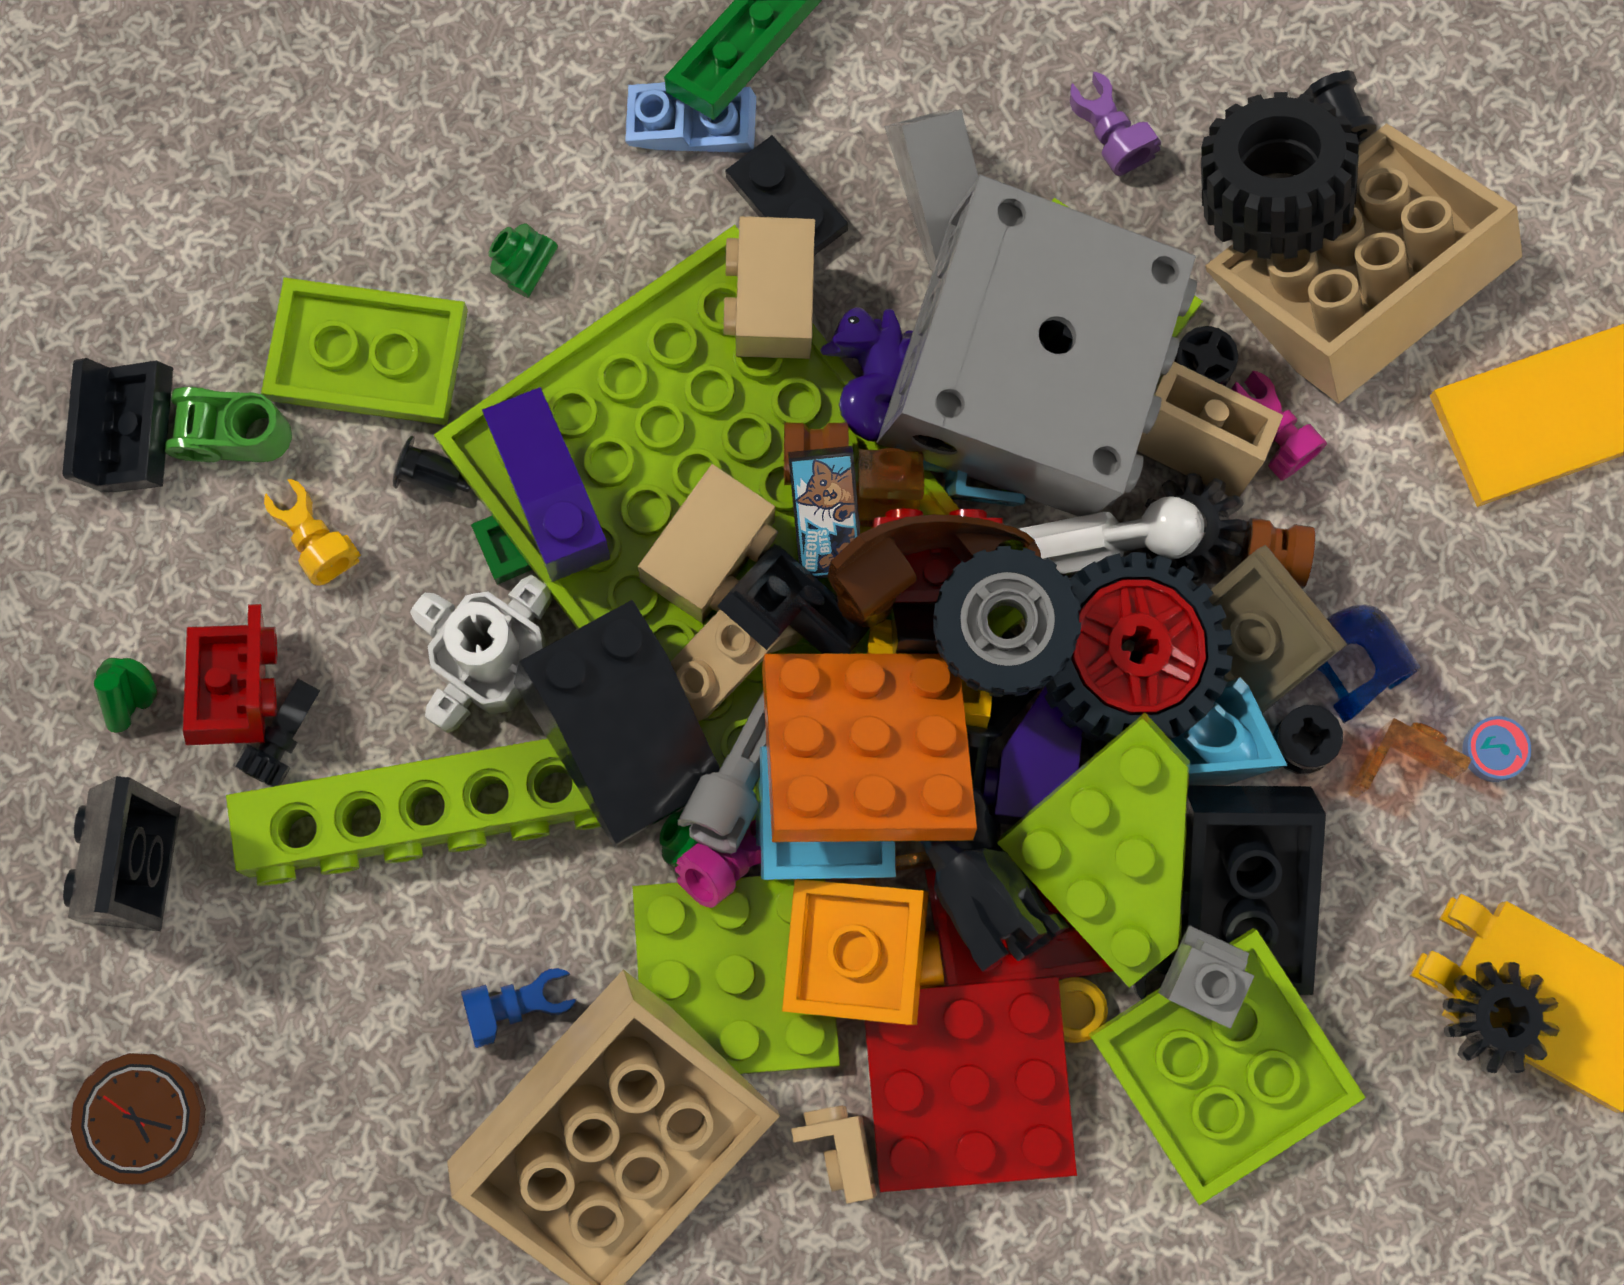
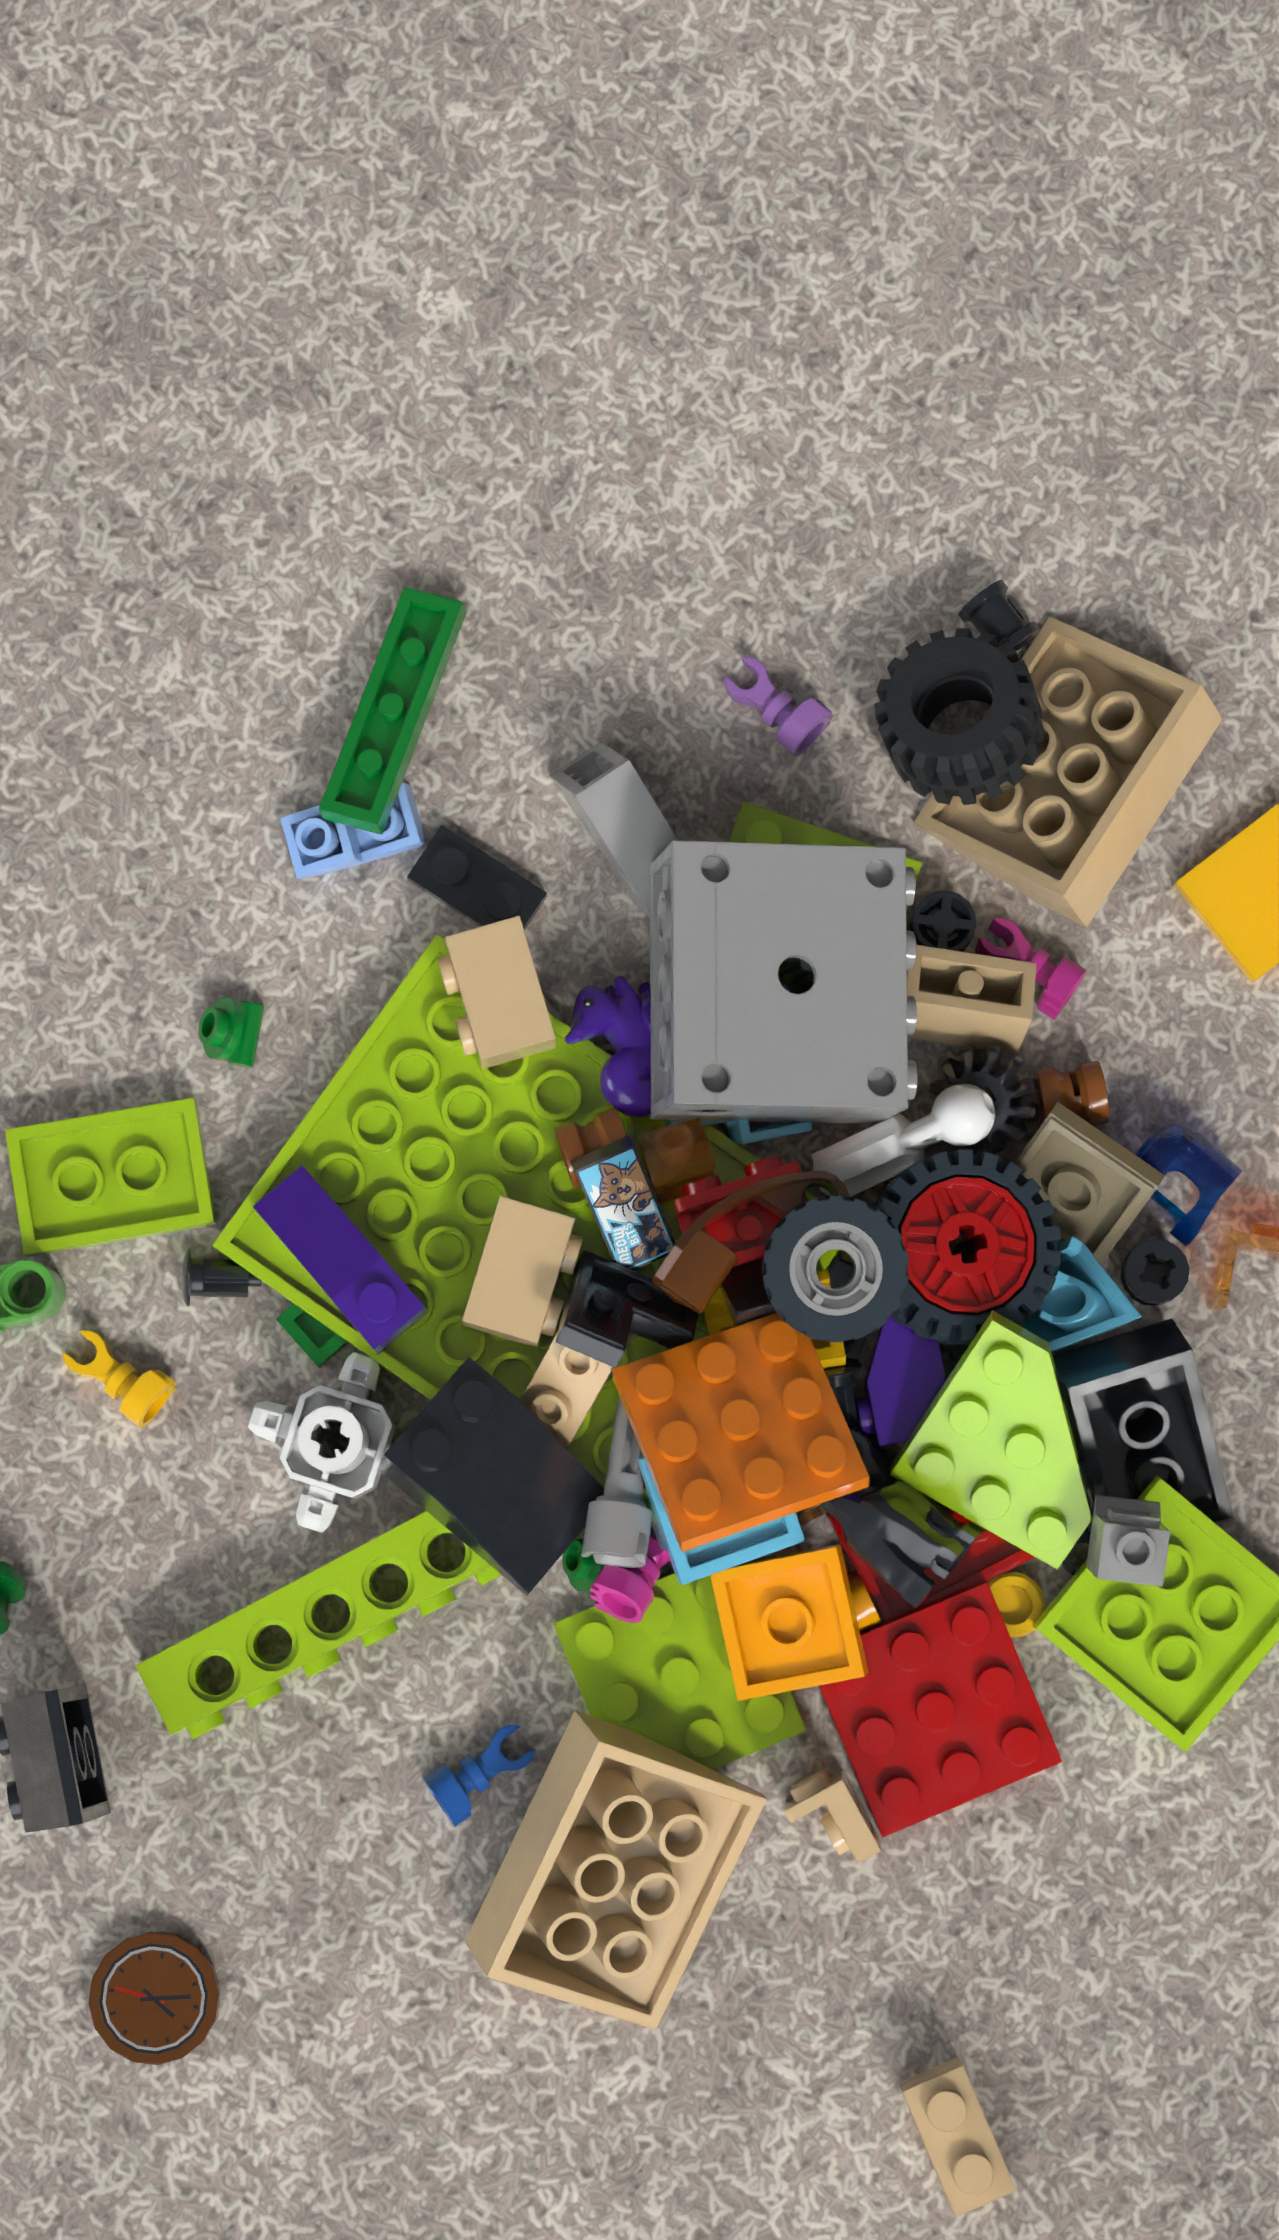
camera: 15 degrees left, 5 degrees up
(227, 682) = (93, 1553): red bracket -> none
(265, 760) = (166, 1560): black piece -> none

